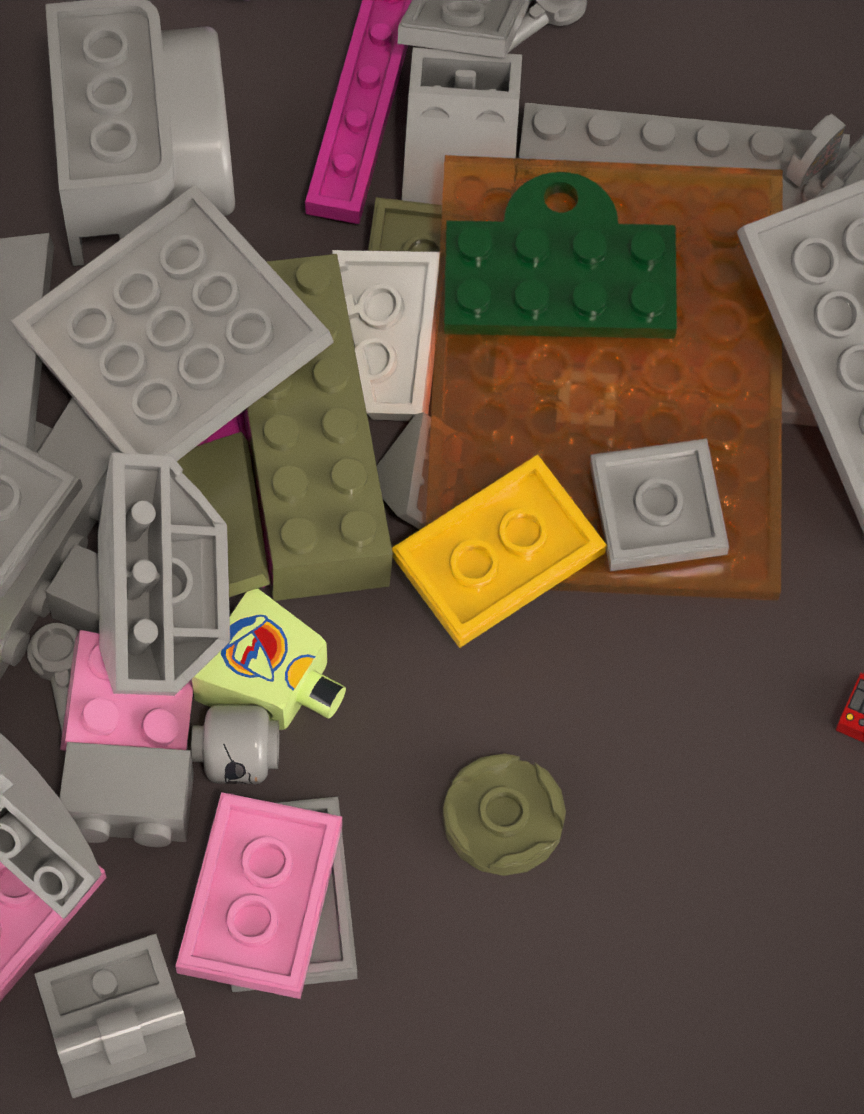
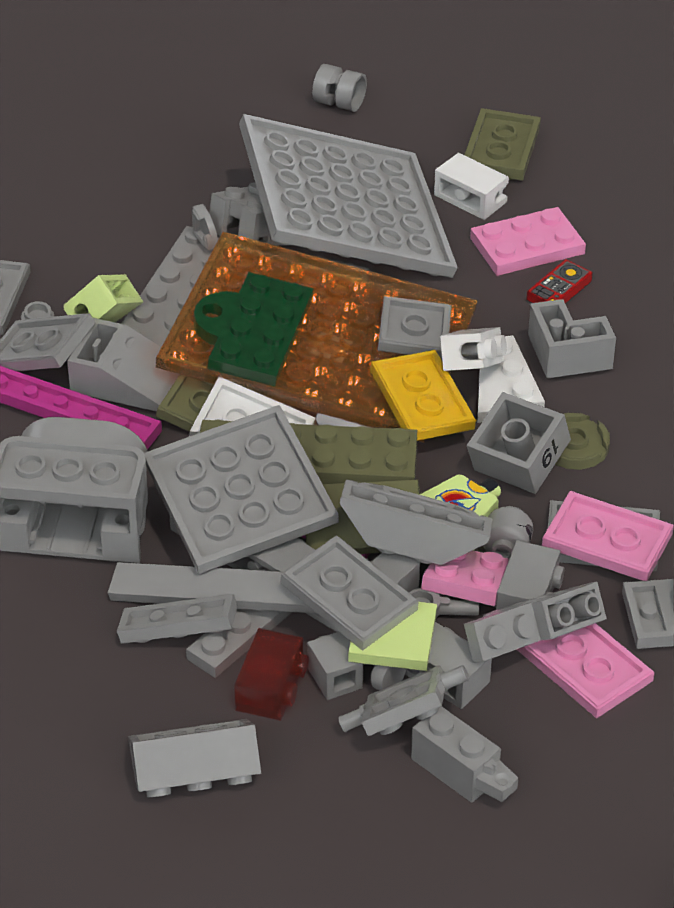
camera: 75 degrees left, 20 degrees down
(426, 716) = (519, 442): none -> light grey brick
(572, 55) = (105, 298): none -> yellowish green torso
(612, 595) = (472, 348): none -> white brick
(622, 680) = (509, 377): none -> white wing
(710, 750) = (569, 344): none -> light grey brick

